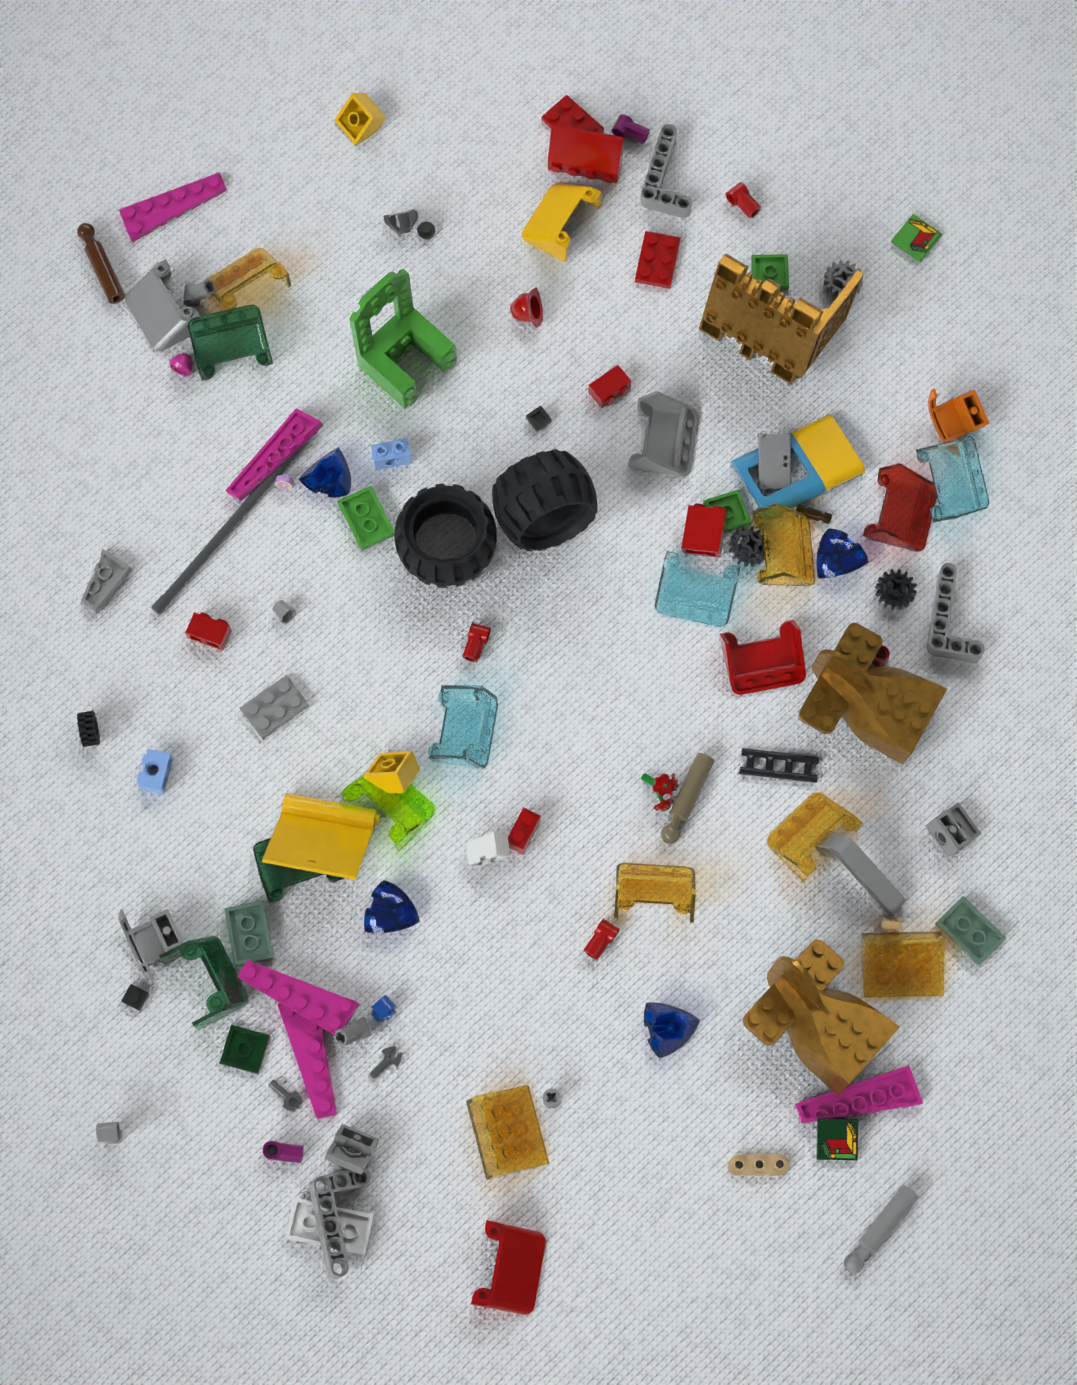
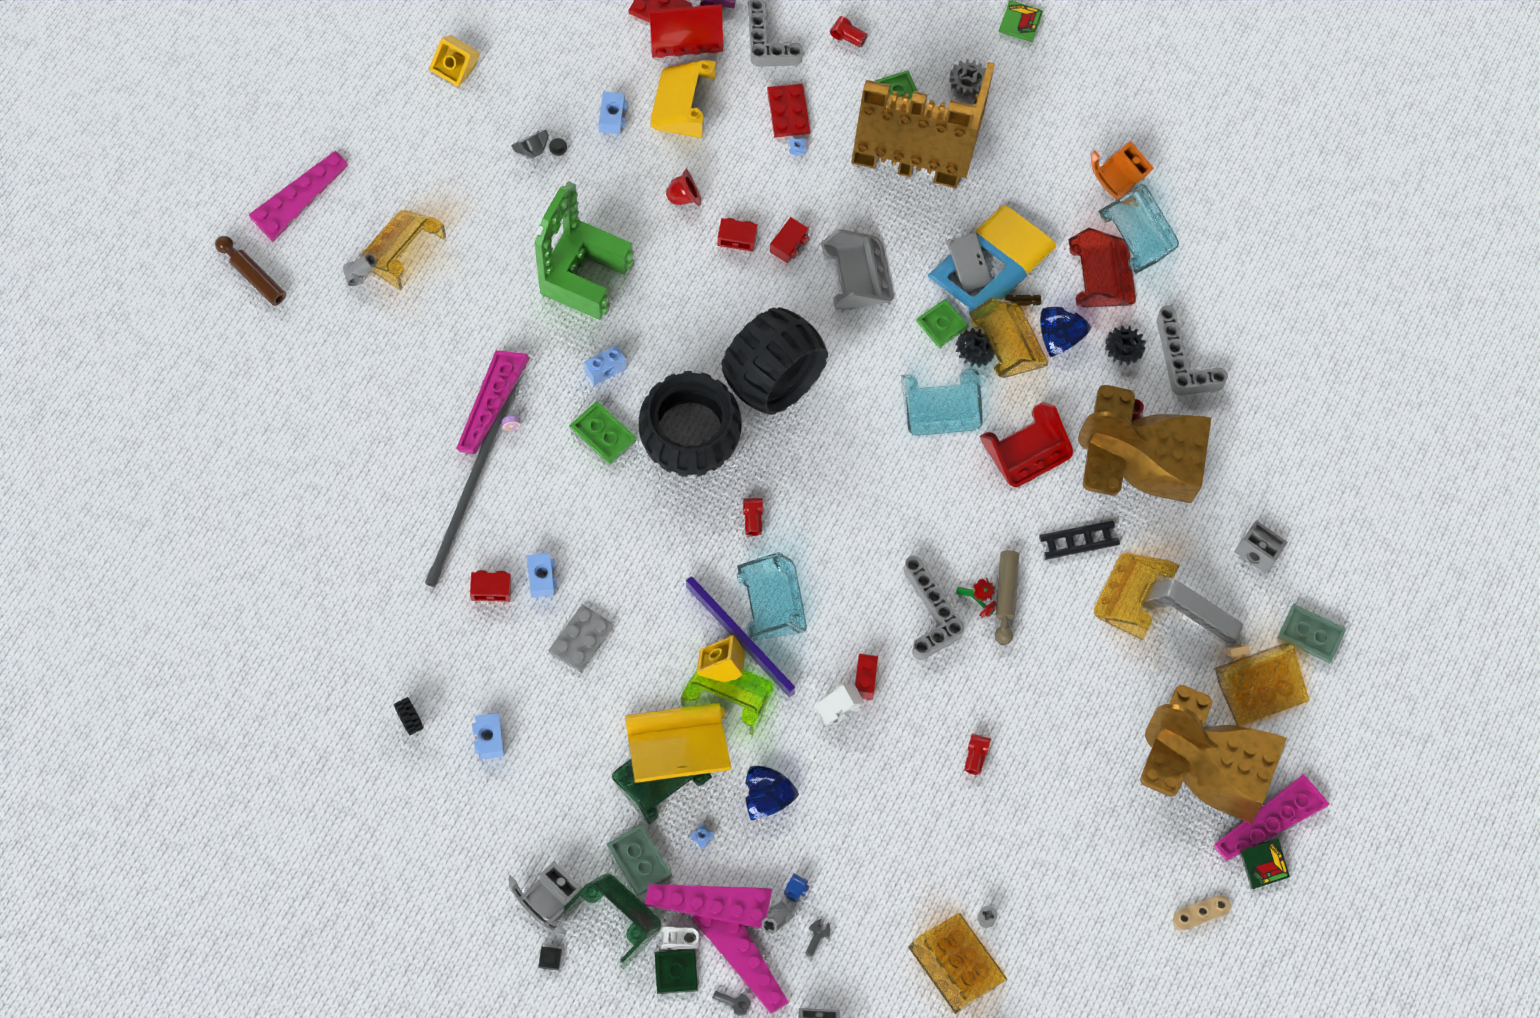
camera: 25 degrees left, 5 degrees down
(107, 578) = (370, 570): light grey wing -> none
(156, 310) = (326, 299): light grey windscreen -> none
(182, 364) = (368, 342): dark pink cone -> none
(228, 337) = (408, 301): clear green windscreen -> none
(254, 1019) = (678, 939): none -> white piece
(256, 624) = (541, 586): none -> light blue brick
(284, 611) = (557, 545): light grey piece -> none
(321, 932) = (708, 835): none -> light blue plate
(328, 475) = (552, 403): clear blue brick -> none
(421, 754) = (747, 644): none -> dark purple tile
(489, 203) = (612, 103): none -> light blue brick
(538, 418) = (733, 290): pearl dark grey plate -> none
(562, 366) = (737, 234): none -> red brick
(615, 786) = (934, 608): none -> light grey beam
(652, 301) = (797, 150): none -> light blue plate
(655, 885) = (1011, 686): clear yellow windscreen -> none
(668, 1027) = (1070, 814): clear blue brick -> none
(704, 530) = (929, 345): red brick -> none
(881, 1228) = (1335, 931): light grey piece -> none

